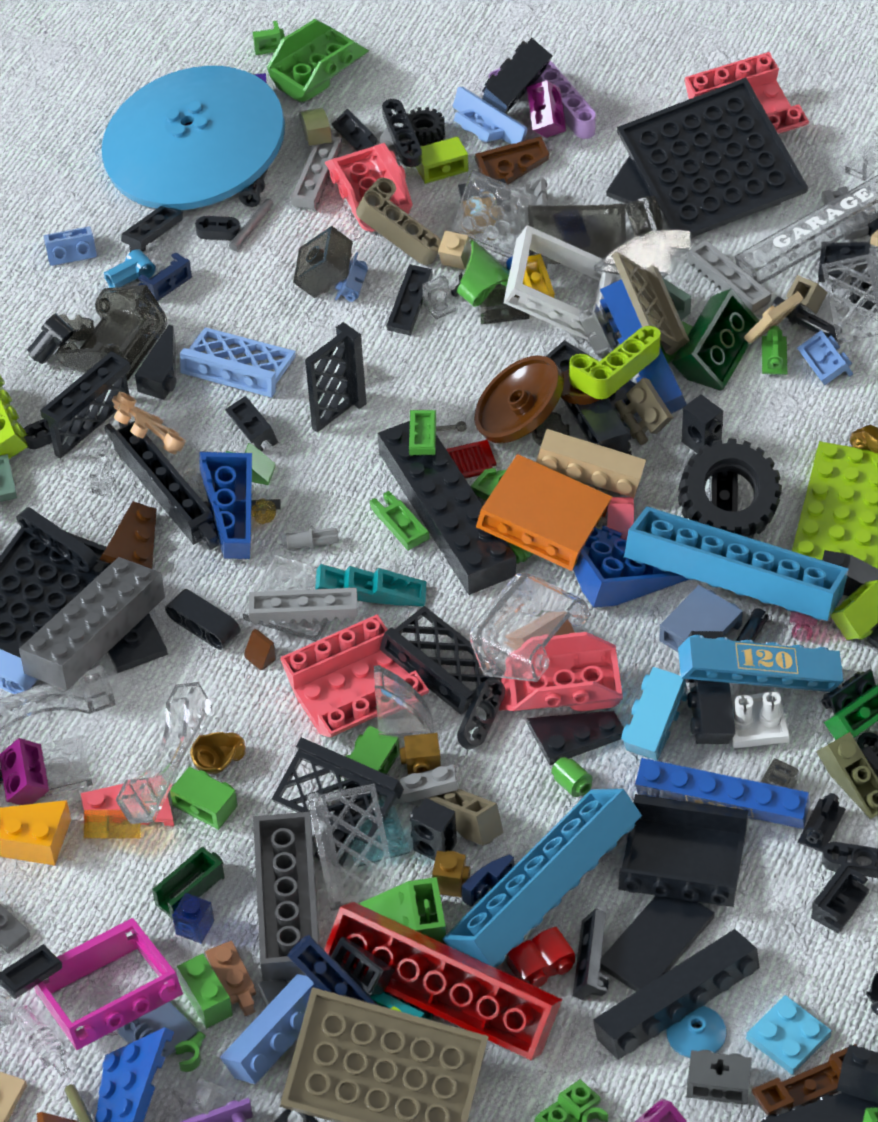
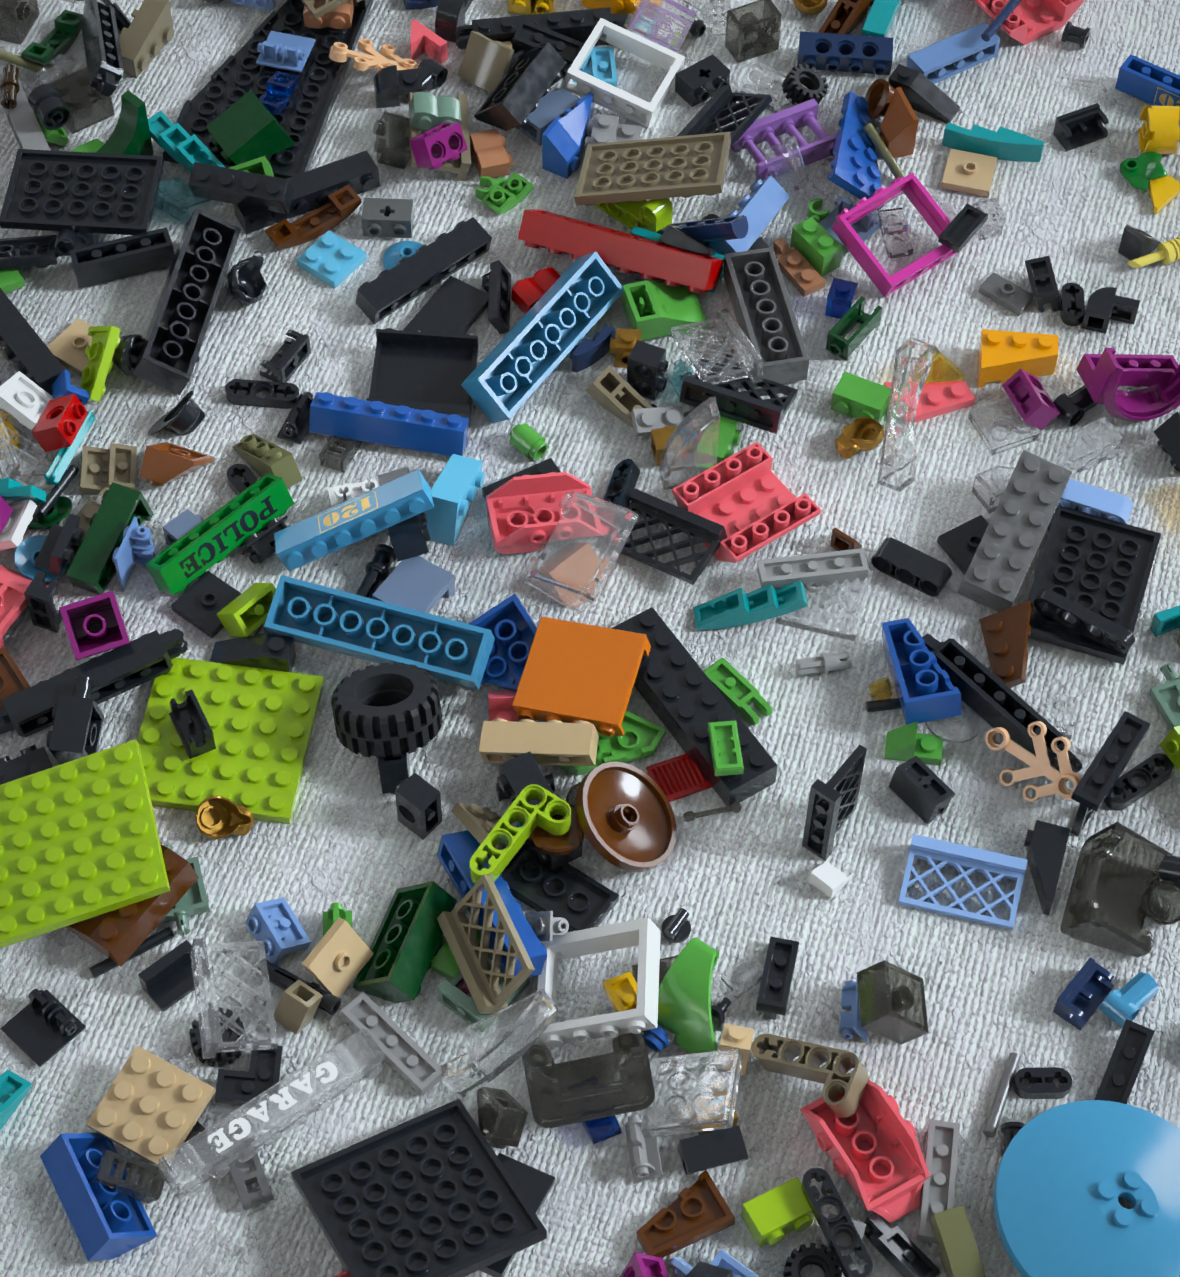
camera: 170 degrees right, 5 degrees up
(488, 341) = (677, 927): none -> black plate

